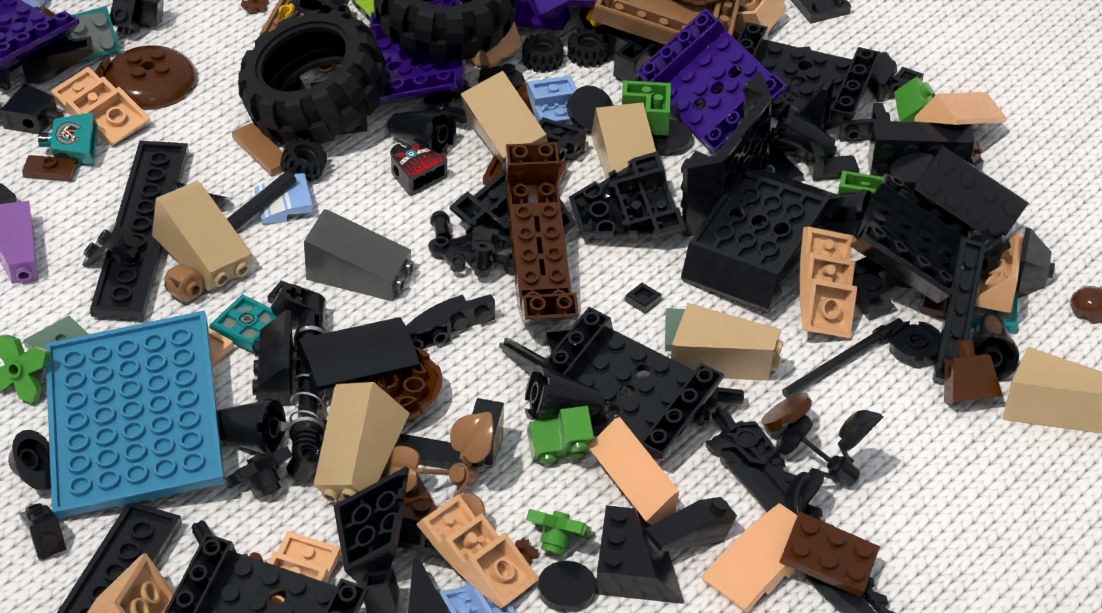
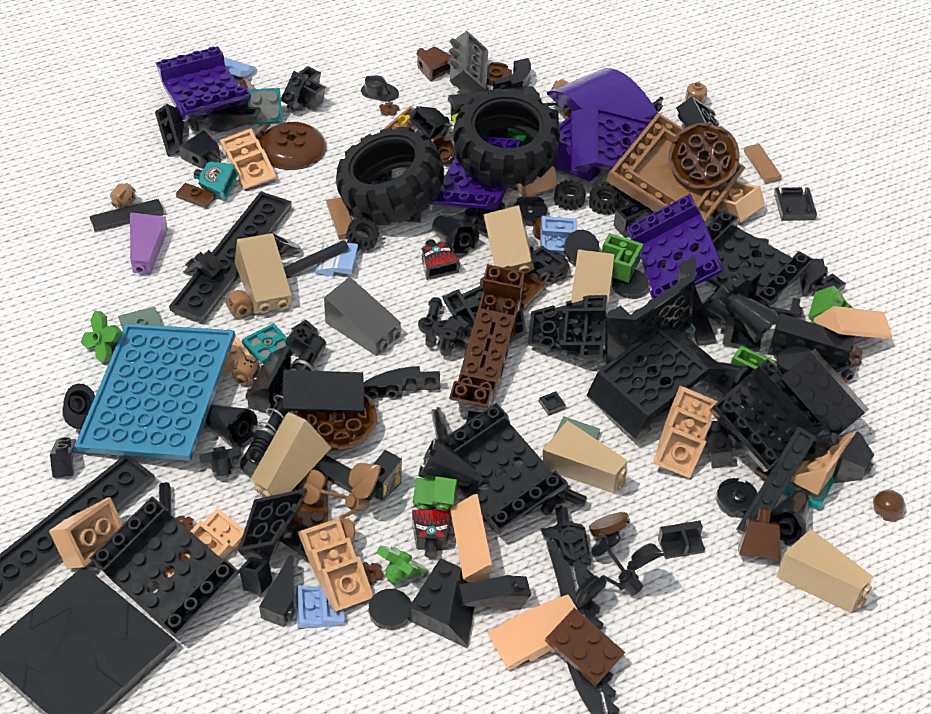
camera: 20 degrees right, 5 degrees up
(237, 358) = (245, 369): none -> medium nougat head
(572, 481) = (431, 530): none -> torso
(840, 132) = (751, 315): none -> black cone
(878, 335) = (712, 482): black bar -> none
(879, 399) = (681, 539): none -> black panel

